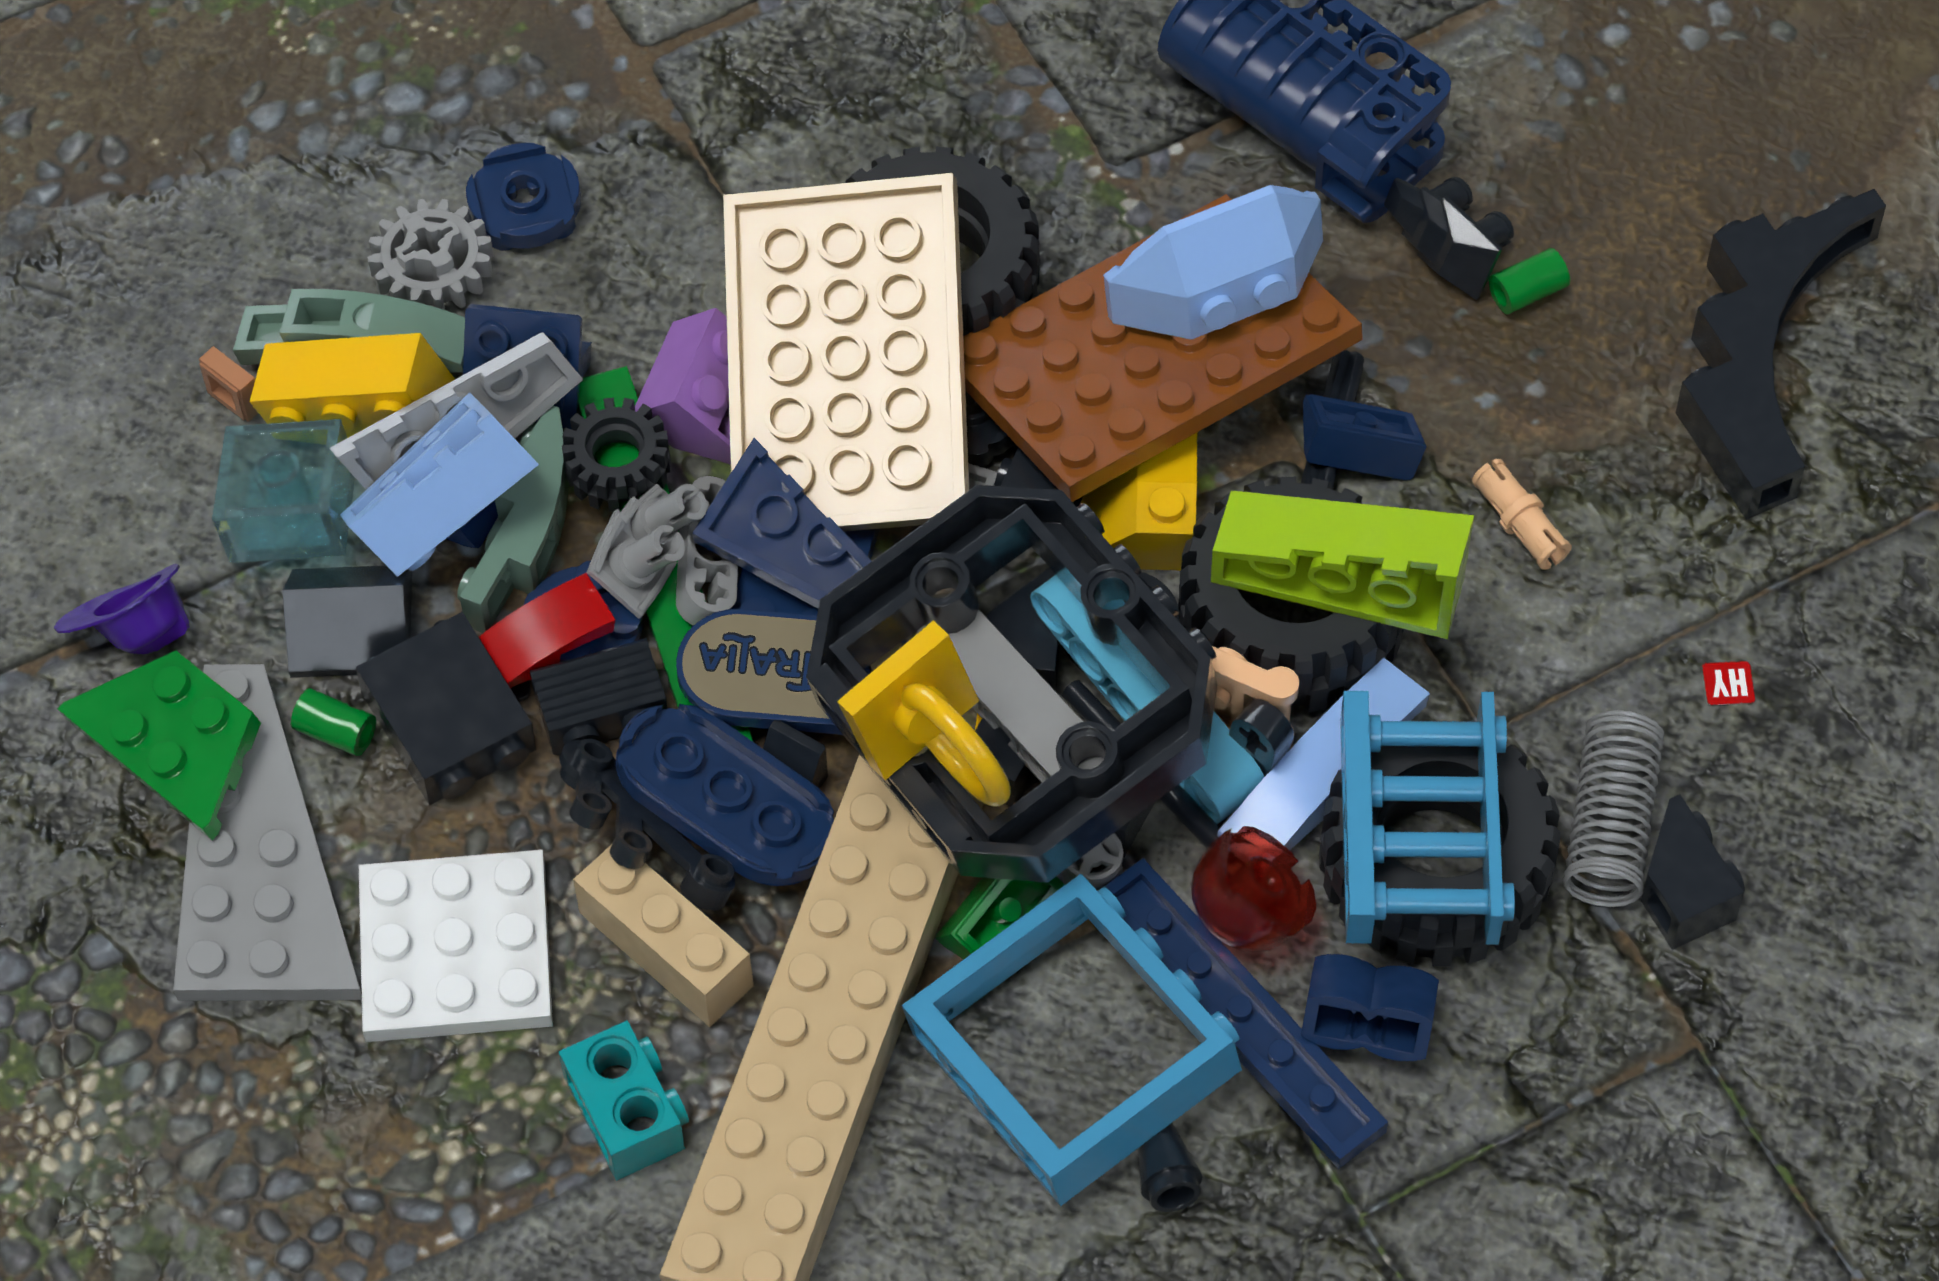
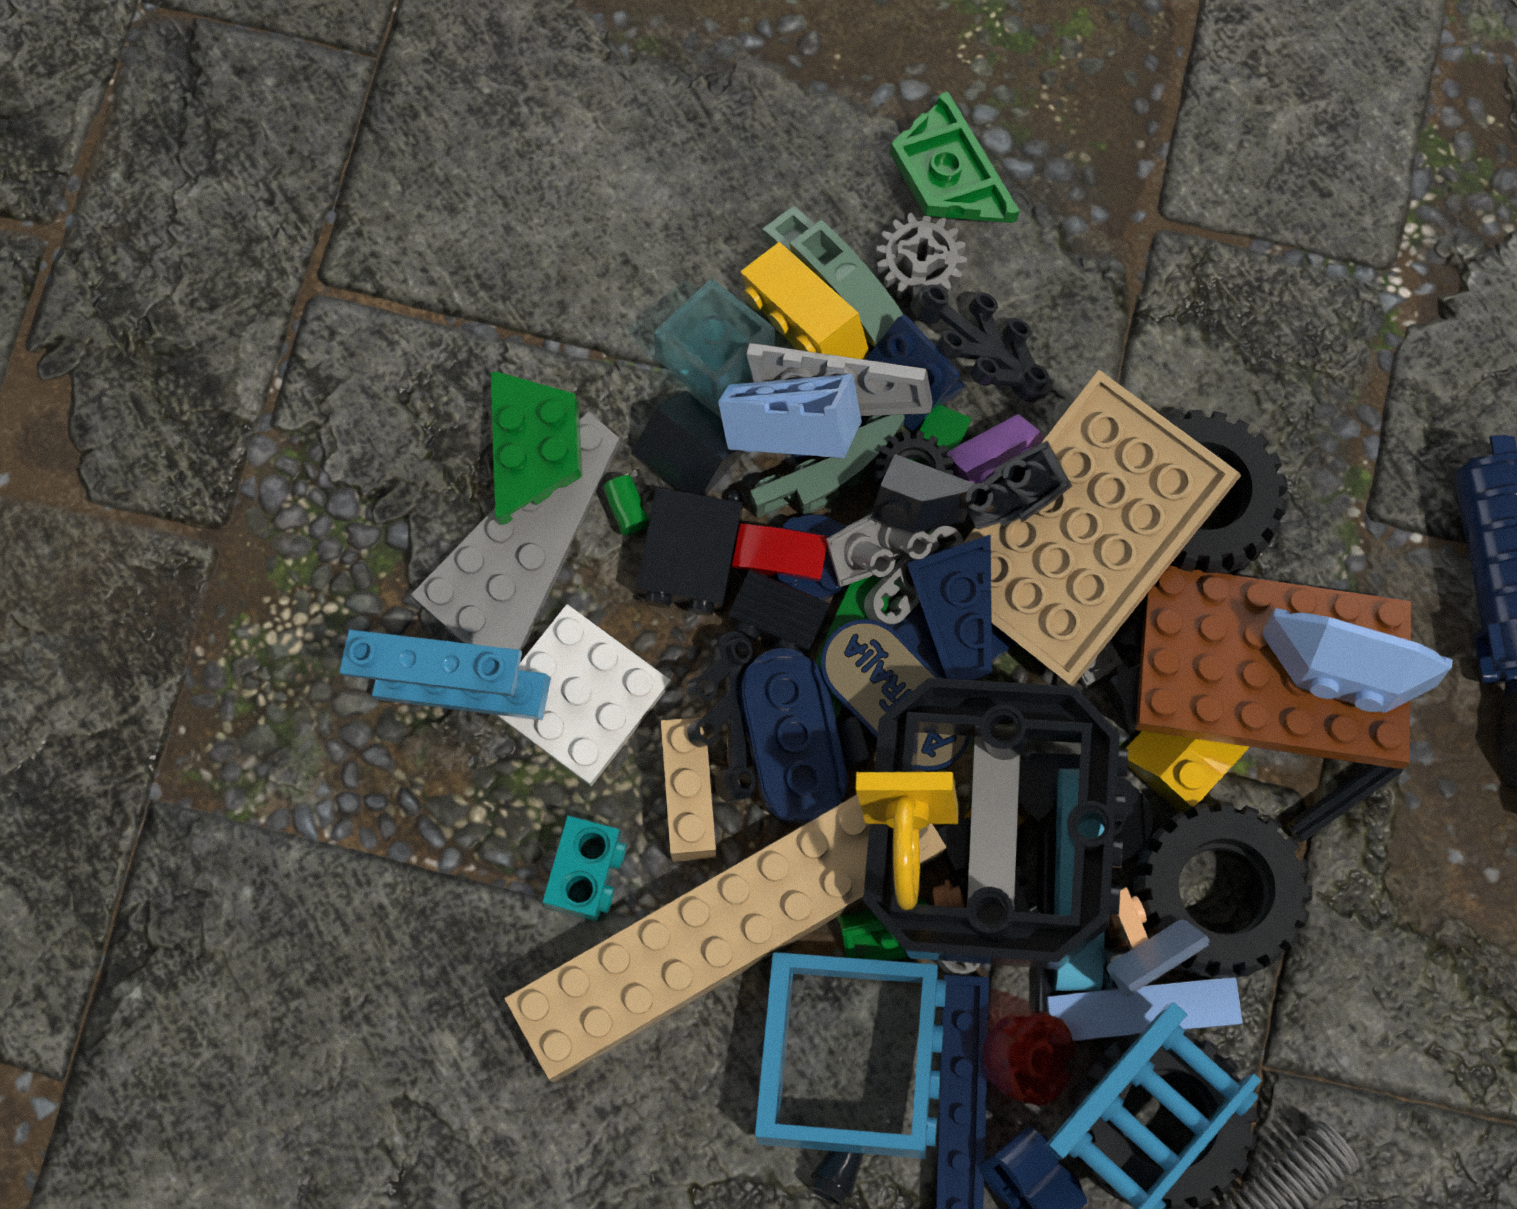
camera: 40 degrees right, 15 degrees up
(134, 617) = (573, 346): dark purple piece -> none
(228, 383) = (743, 244): nougat tile -> none
(297, 1009) = (446, 674): none -> dark azure fence
(383, 150) = (950, 168): none -> green wing
(529, 223) = (1009, 284): dark blue plate -> none
(650, 285) = (986, 346): none -> black plant
(650, 451) = (920, 497): none -> black slope
(743, 369) = (1018, 488): none -> black connector
(1290, 672) = (1156, 956): none -> sand blue slope
(1346, 557) = (1254, 913): lime wedge -> none
(1361, 437) = (1353, 822): dark blue slope -> none
(1521, 514) = (1406, 950): light nougat pin -> none
(1728, 683) = (1434, 1161): red sticker -> none

